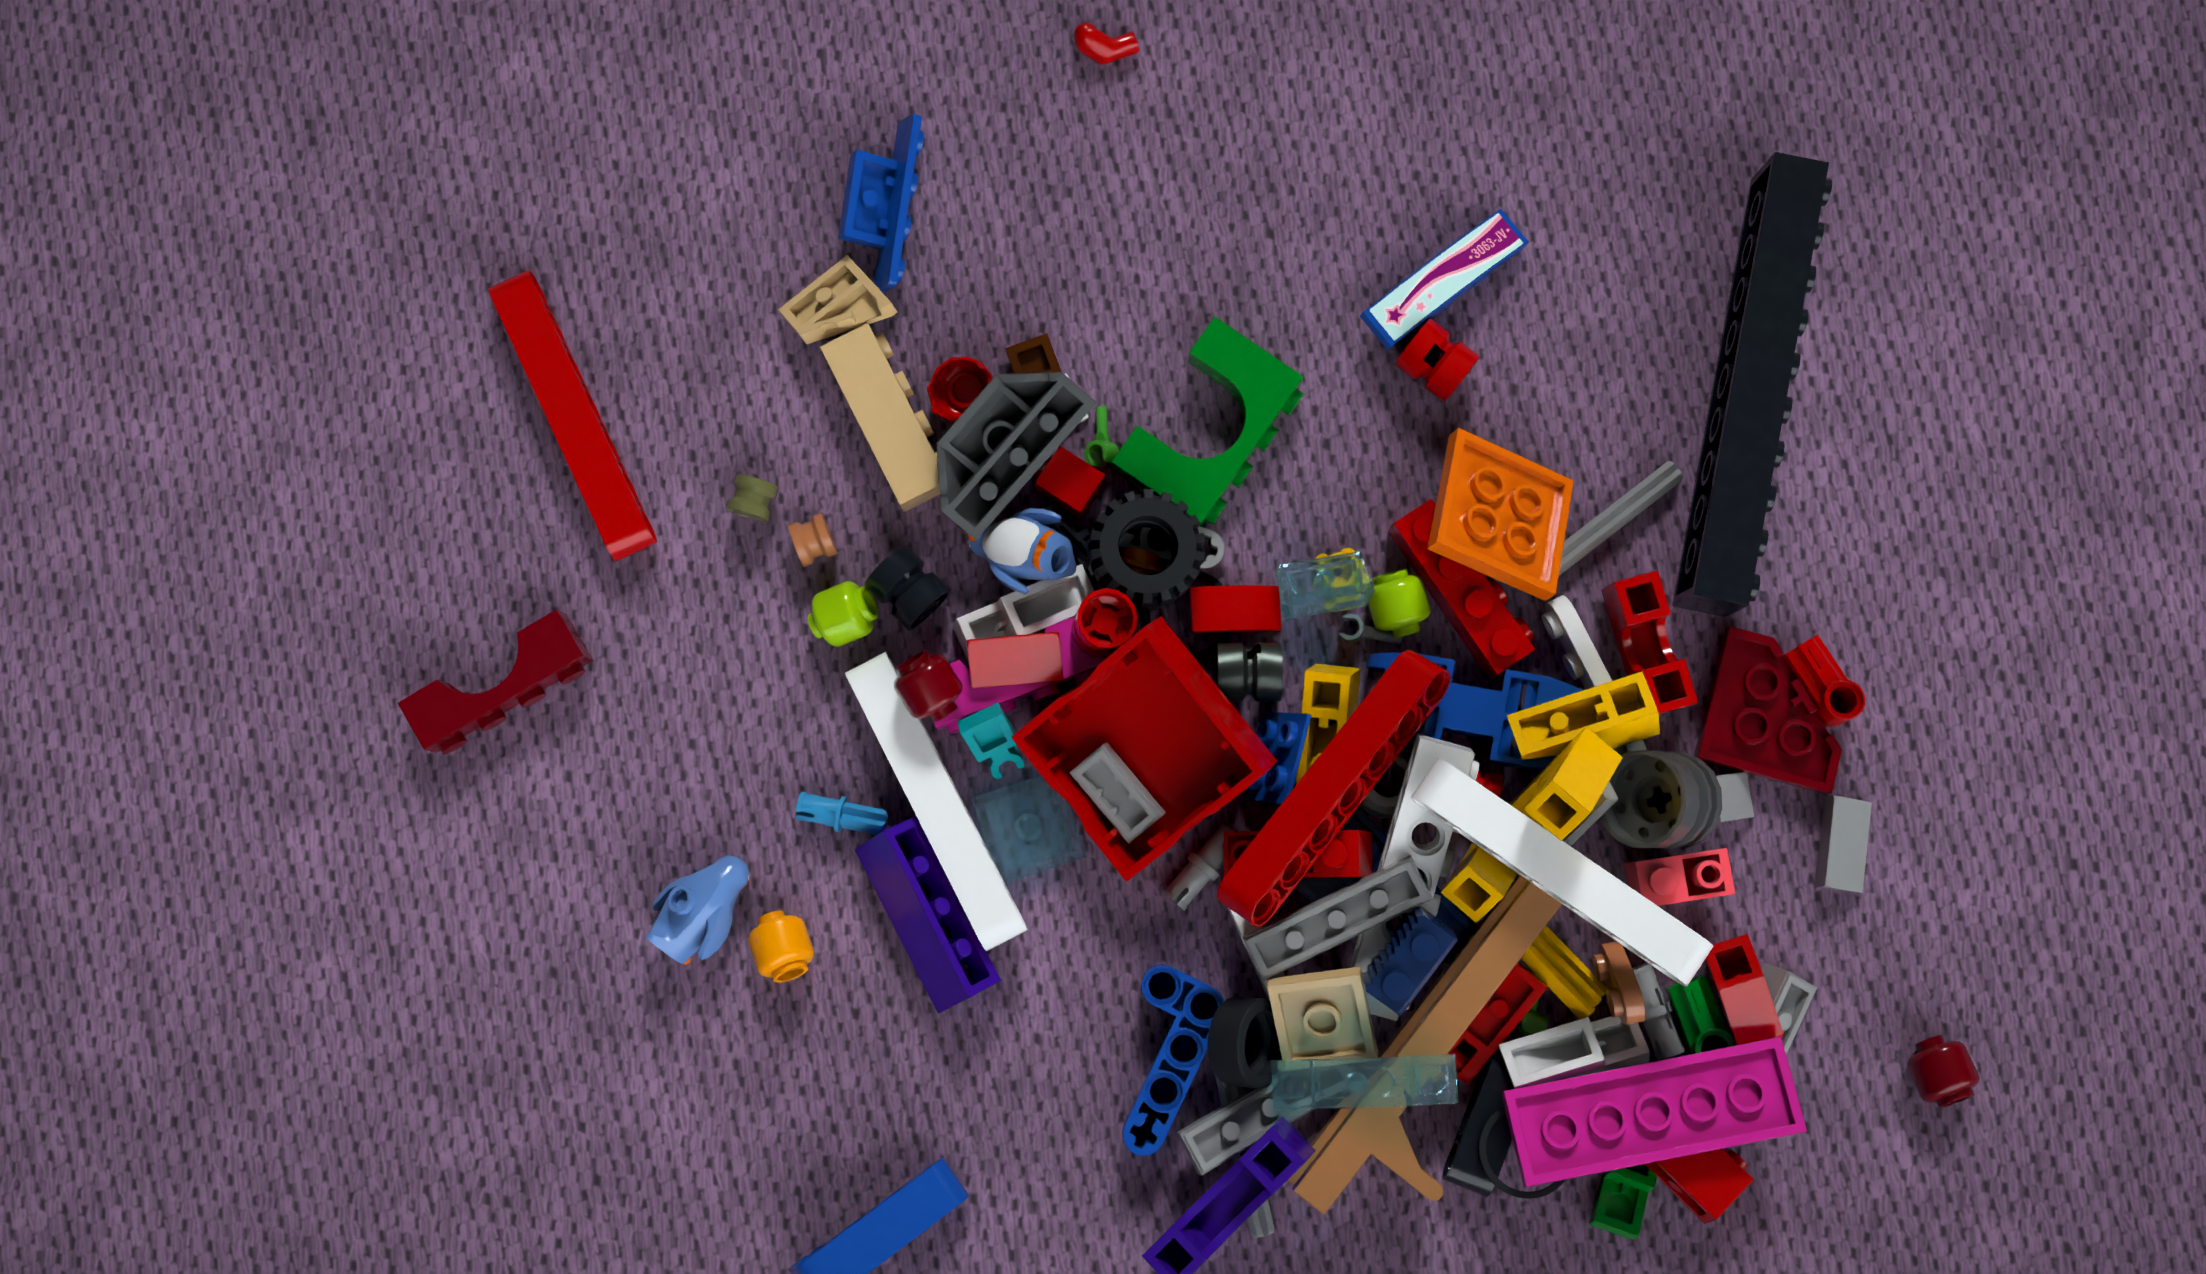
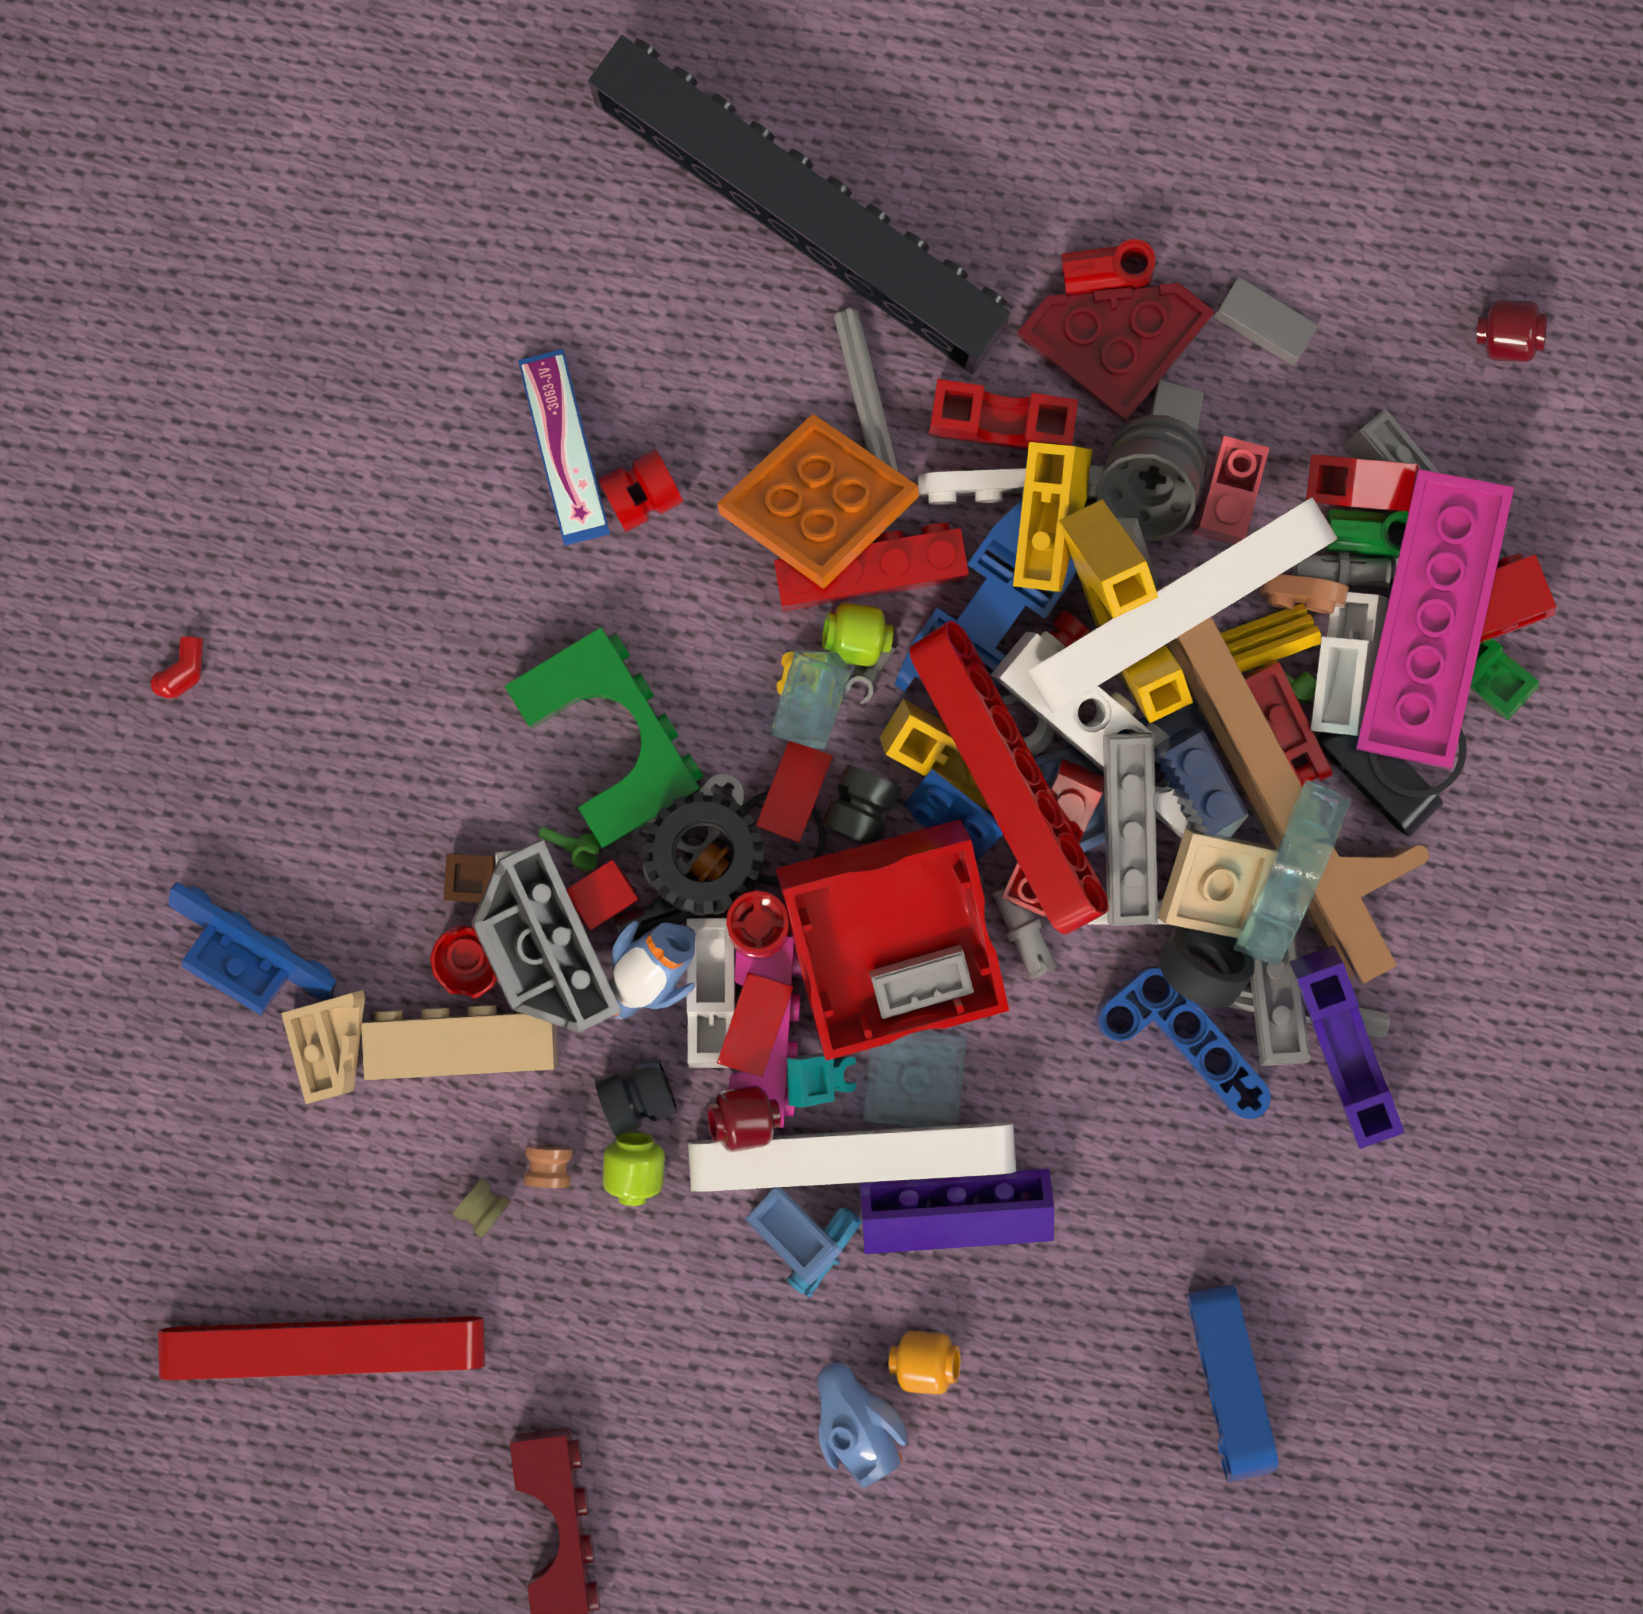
camera: 70 degrees left, 5 degrees up
(844, 779) = (793, 1234): none -> medium blue tile

